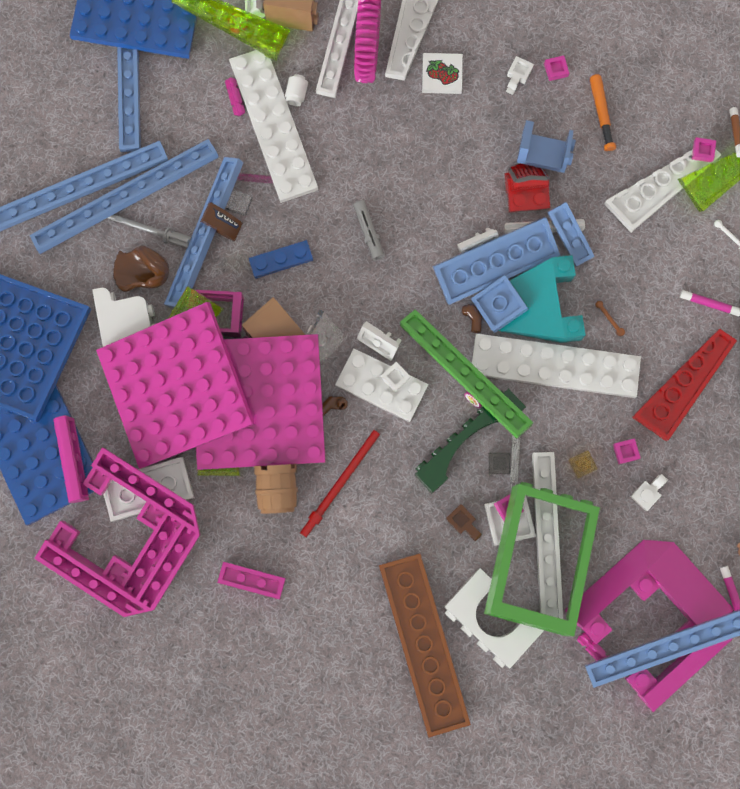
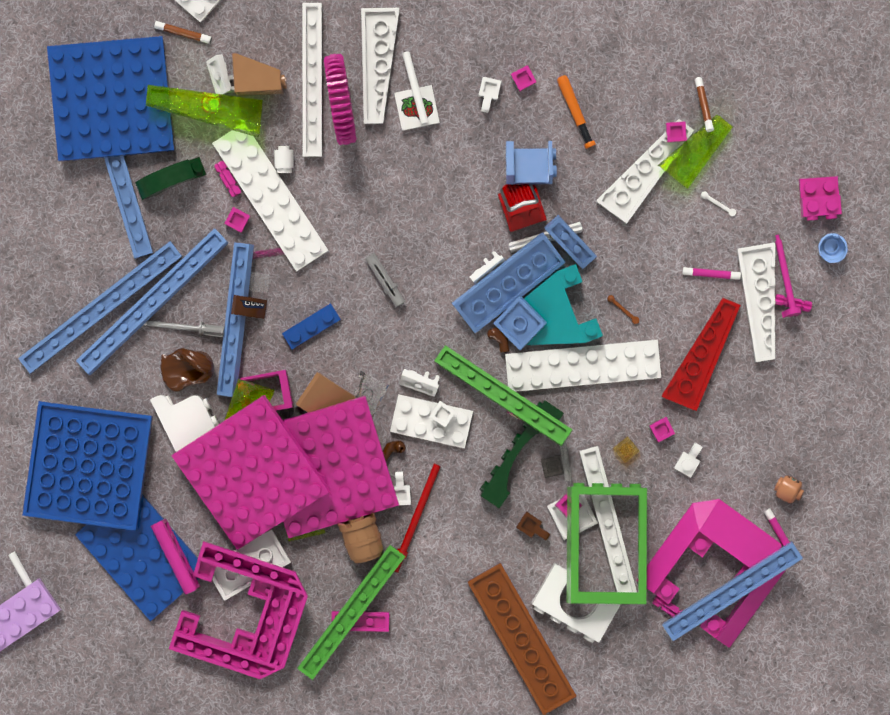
camera: 15 degrees left, 10 degrees up
(174, 75) = (169, 177): none -> dark green arch
(233, 136) = (237, 219): none -> dark pink plate
(242, 567) = (351, 612): none -> bright green plate
(332, 451) = (402, 491): none -> white plate
(445, 52) = (415, 88): none -> white bar

